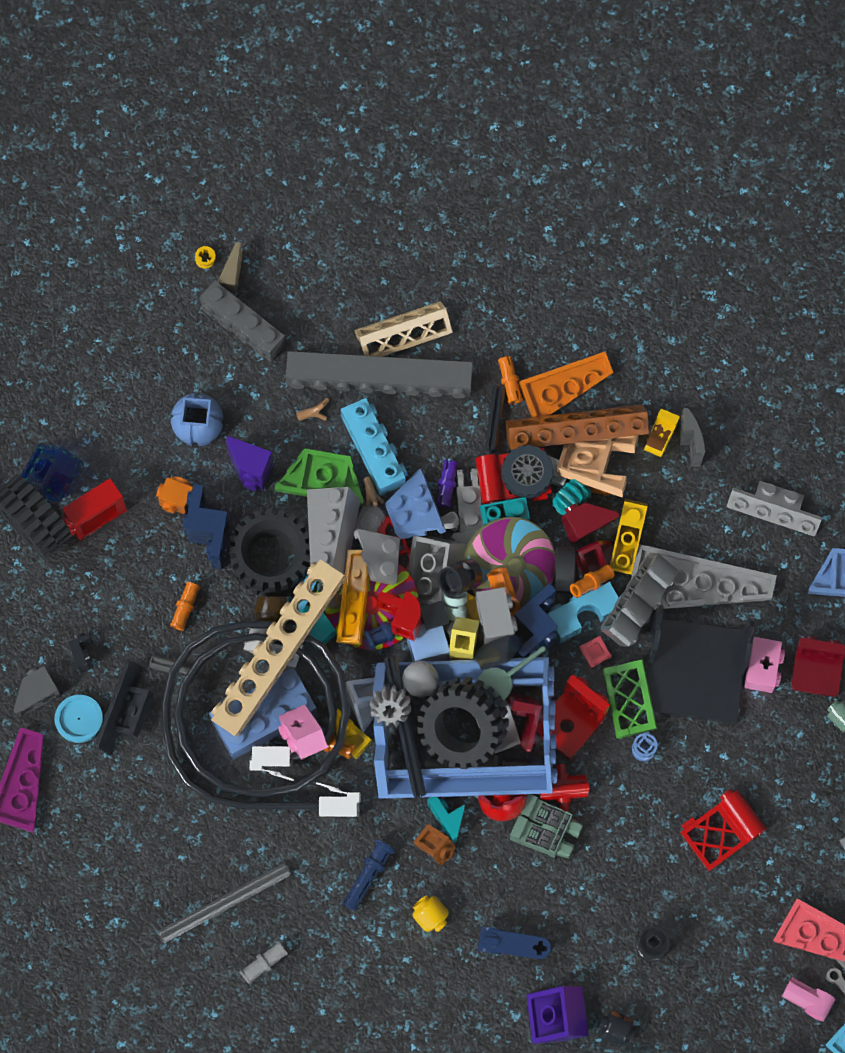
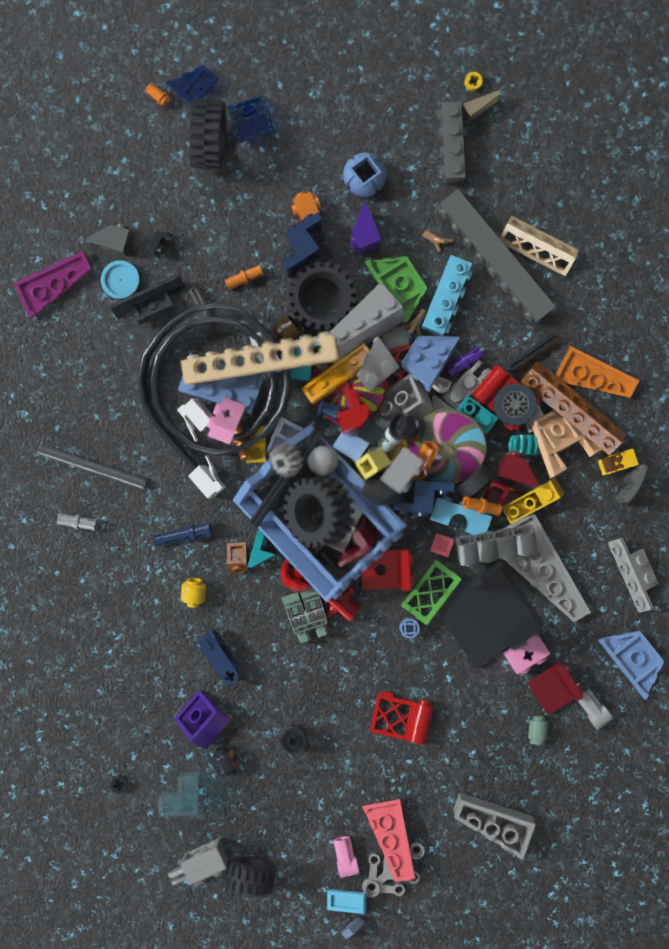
camera: 50 degrees right, 15 degrees up
(94, 509) = (249, 167): red window -> none
(500, 680) = (364, 510): sand green piece -> none
(510, 380) = (567, 339): orange pin -> none

